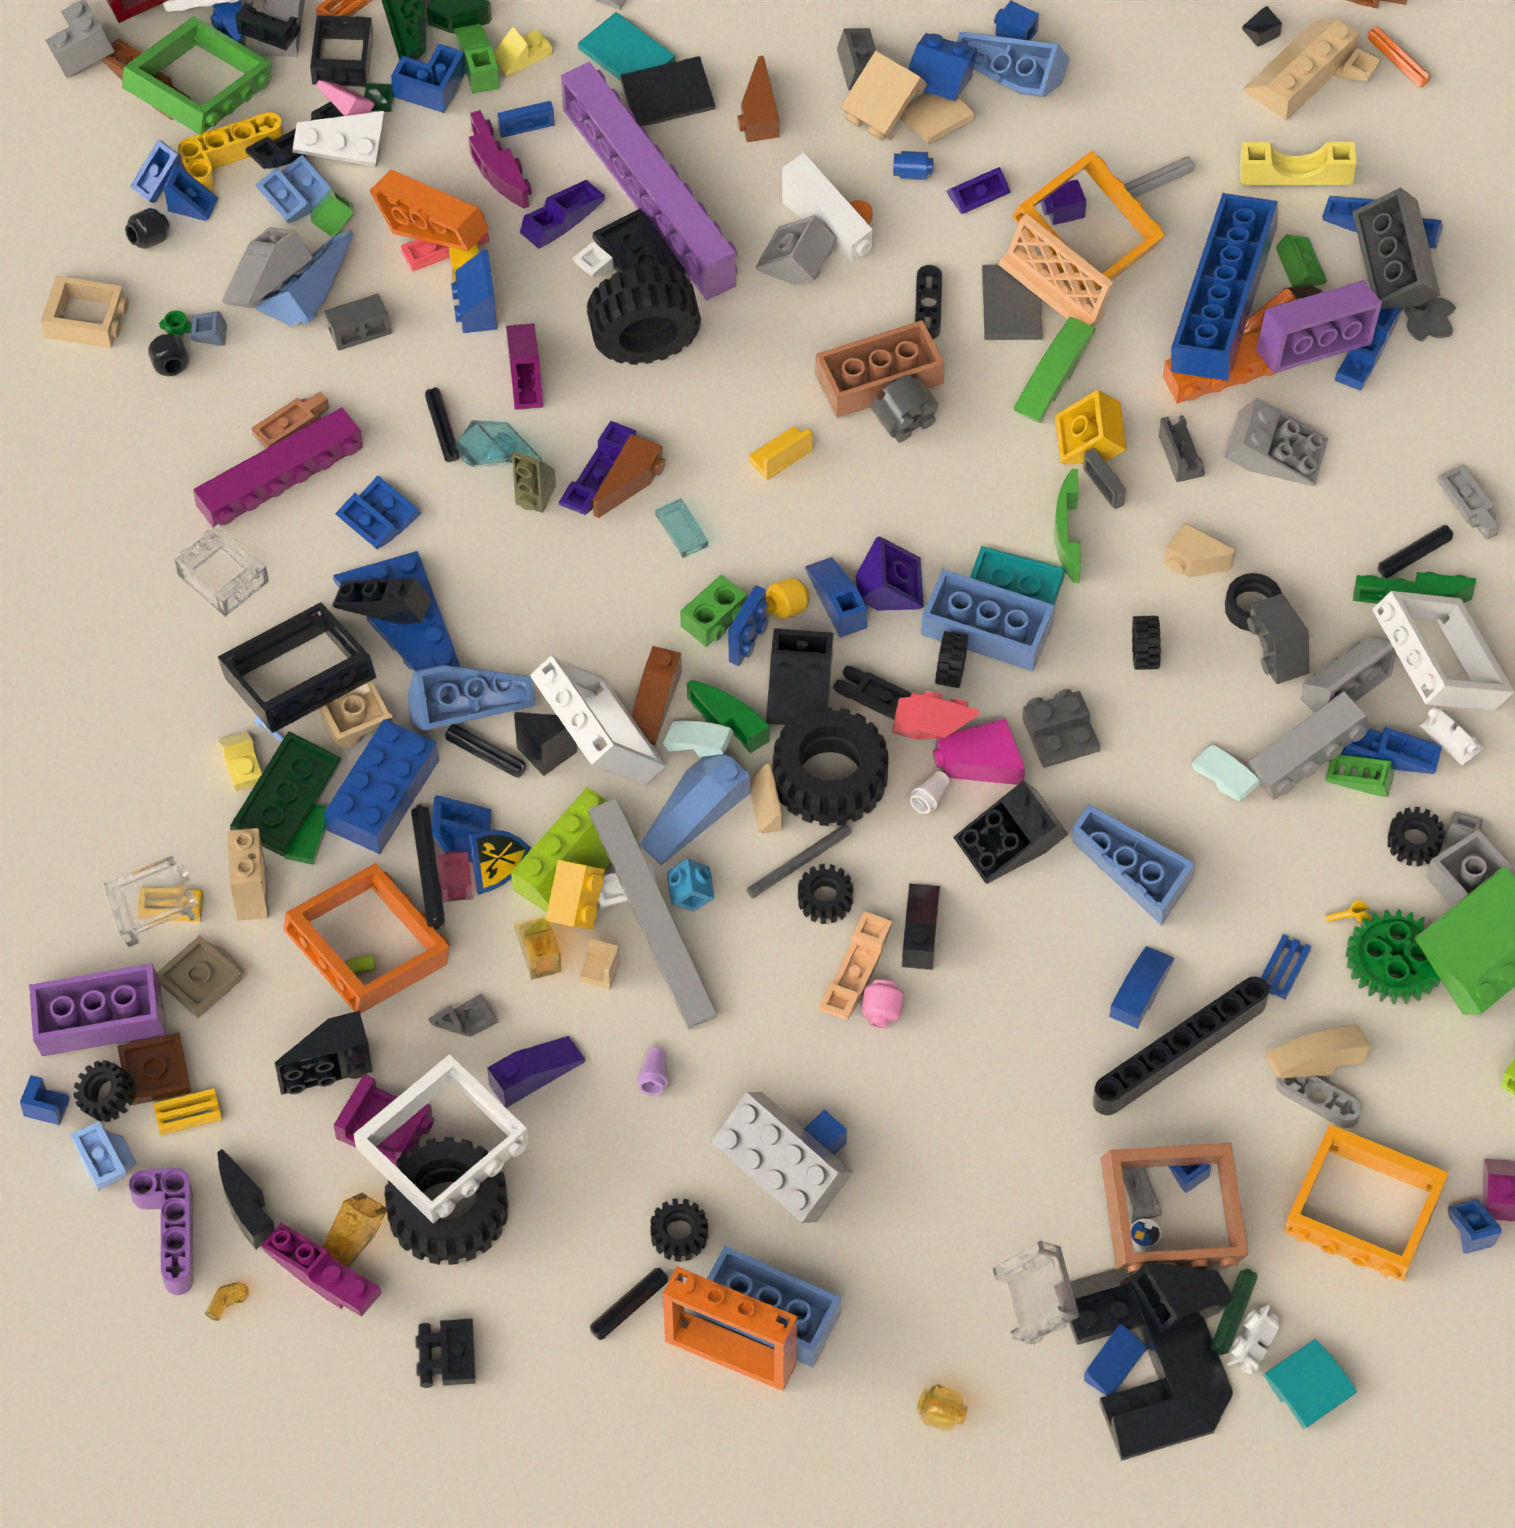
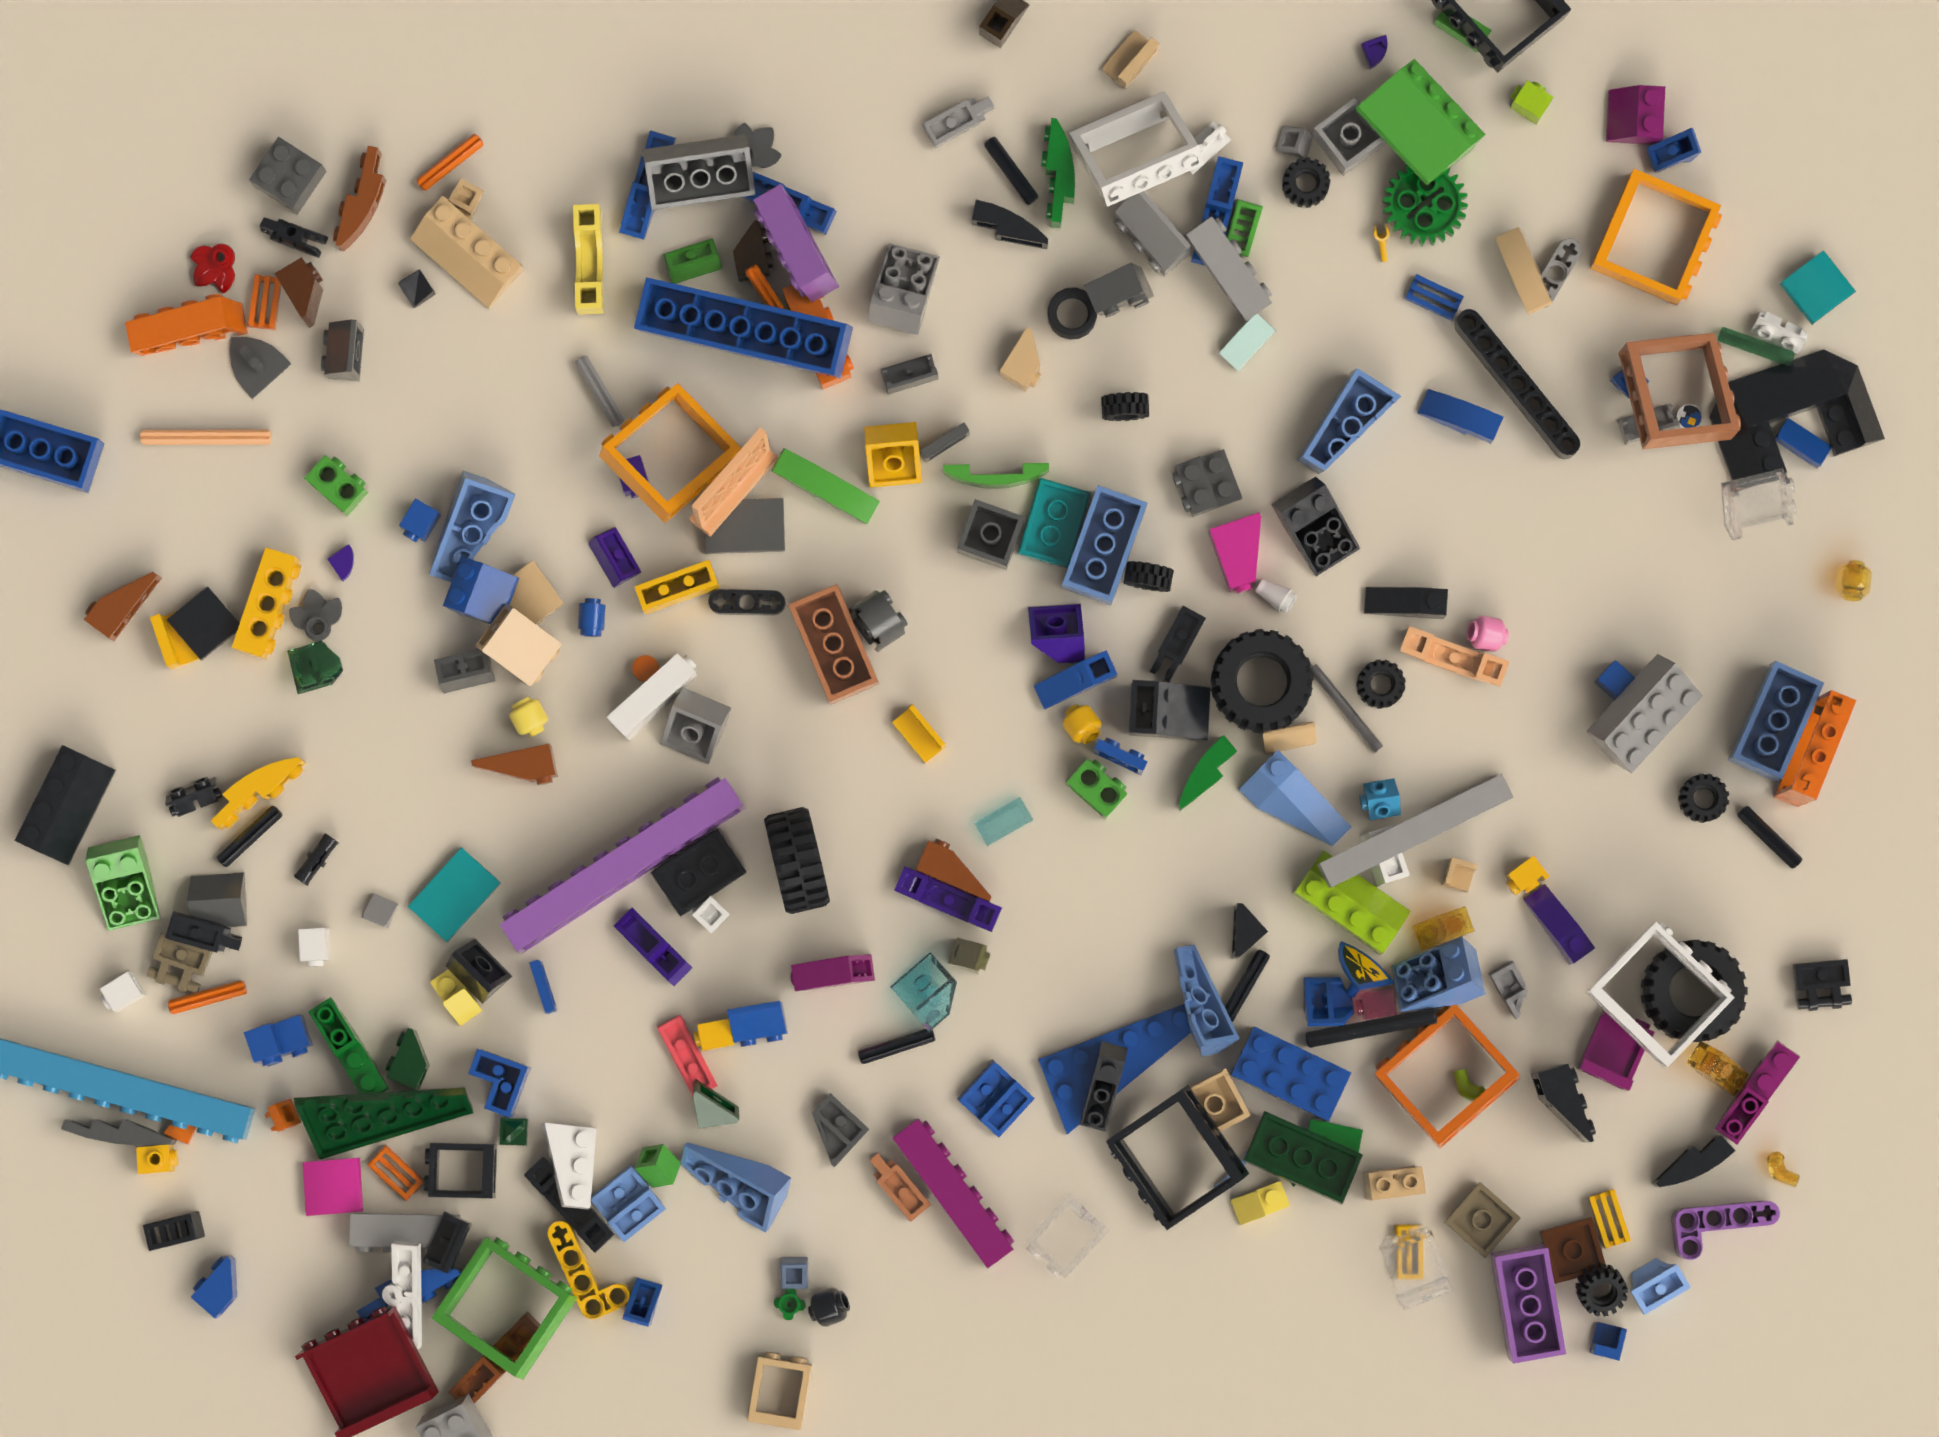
camera: 90 degrees left, 25 degrees up
(147, 228) = (681, 1341): black head -> none
(155, 171) = (618, 1338): slope -> none
(266, 266) = (735, 1223): light grey slope -> none
(345, 99) = (527, 1157): bright pink slope -> none
(358, 322) = (784, 1131): dark grey hinge -> none
(358, 369) = (837, 1128): none -> dark grey wing
(389, 254) = (712, 1107): none -> slope
(427, 213) = (677, 1068): orange wedge -> none
(479, 58) = (465, 1038): bright green slope -> none
(481, 935) = (1439, 977): none -> medium blue slope
(496, 164) = (604, 1007): magenta slope -> none
(545, 62) = (478, 970): none -> black slope
(575, 894) = (1403, 896): yellow brick -> none
(595, 1034) = (1525, 876): none -> yellow brick
(597, 718) = (1228, 864): white window -> none
(653, 1074) = (1558, 824): lavender cone -> none
(656, 691) = (1187, 838): dark orange slope -> none
(667, 91) = (507, 852): black tile -> none
(702, 737) = (1231, 798): light aqua slope -> none
(808, 109) = (528, 716): none -> light yellow head
(930, 717) = (1214, 592): coral slope -> none
(944, 233) = (677, 587): none -> yellow brick
(1000, 513) = (990, 534): none -> dark grey brick
(1180, 1294) = (1756, 386): black slope -> none
(1352, 541) = (1009, 225): none -> black slope

